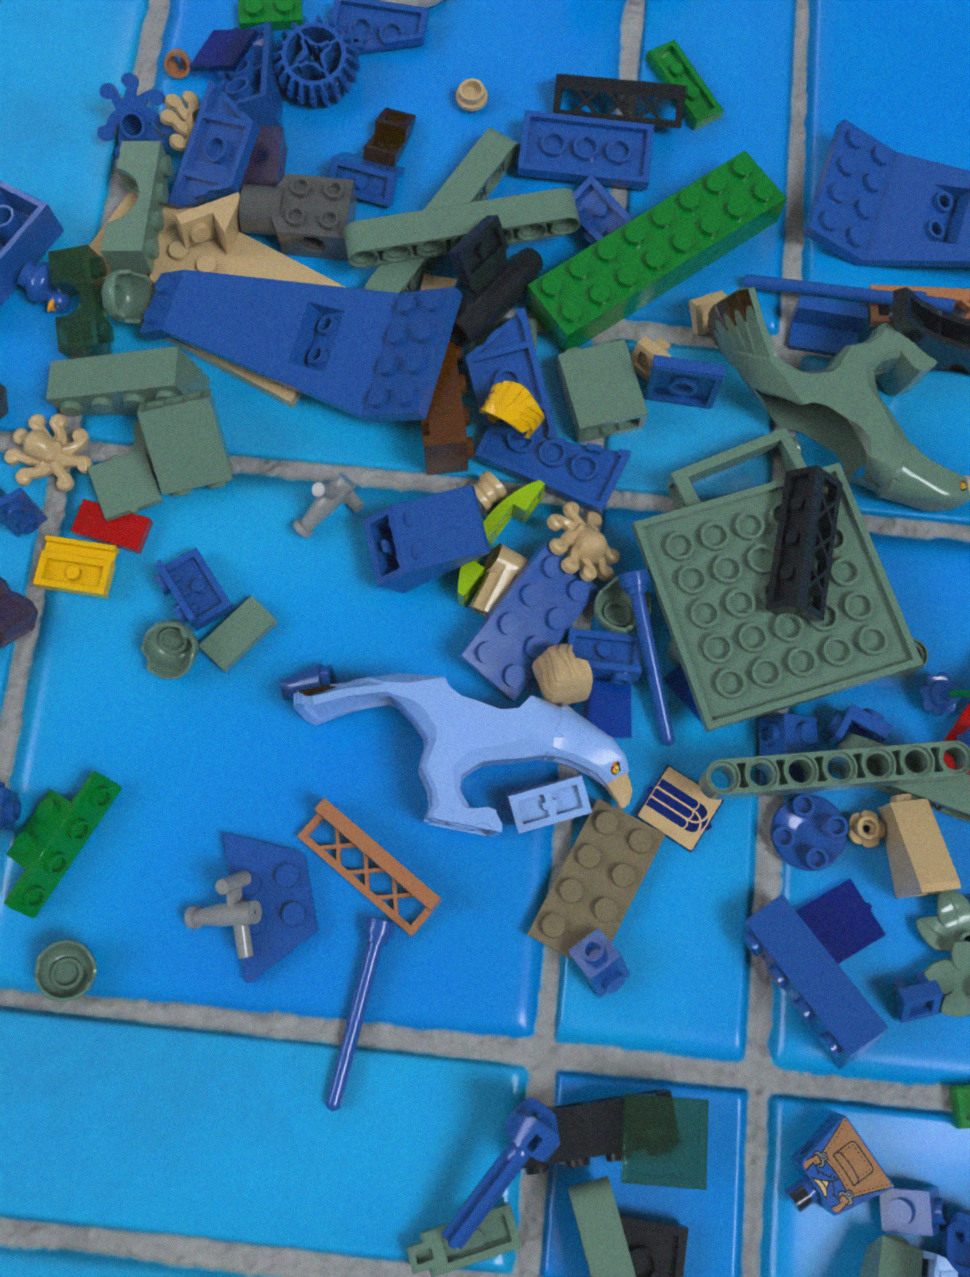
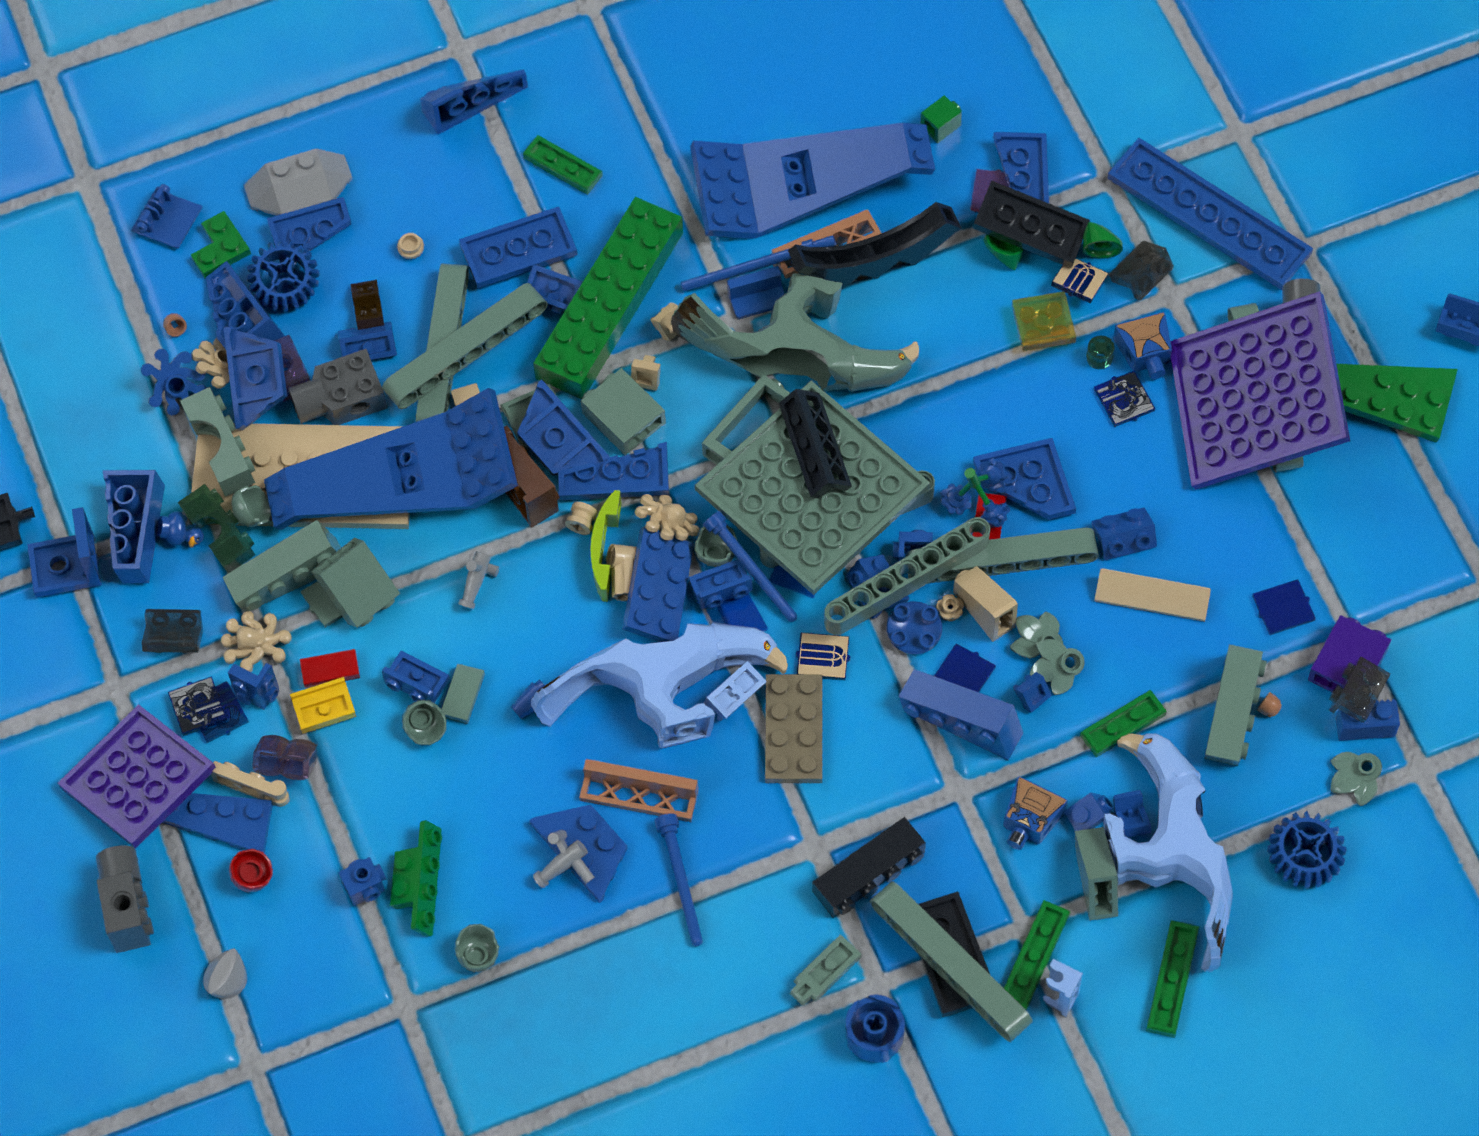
camera: 25 degrees left, 10 degrees down
(125, 485) = (323, 635): sand green piece -> none
(211, 220) = (279, 424): tan slope -> none
(224, 50) = (205, 299): clear blue piece -> none
(425, 538) = (559, 564): blue slope -> none
(492, 279) = (507, 370): black plate -> none
(513, 405) = (571, 449): yellow hair -> none
(528, 1138) = (825, 903): blue piece -> none
(562, 675) = (700, 605): tan hair -> none
(600, 963) = (823, 769): blue bracket -> none
(621, 86) = (520, 189): black fence -> none
(664, 1141) = (913, 841): plate -> none
(684, 381) = (678, 377): blue plate -> none

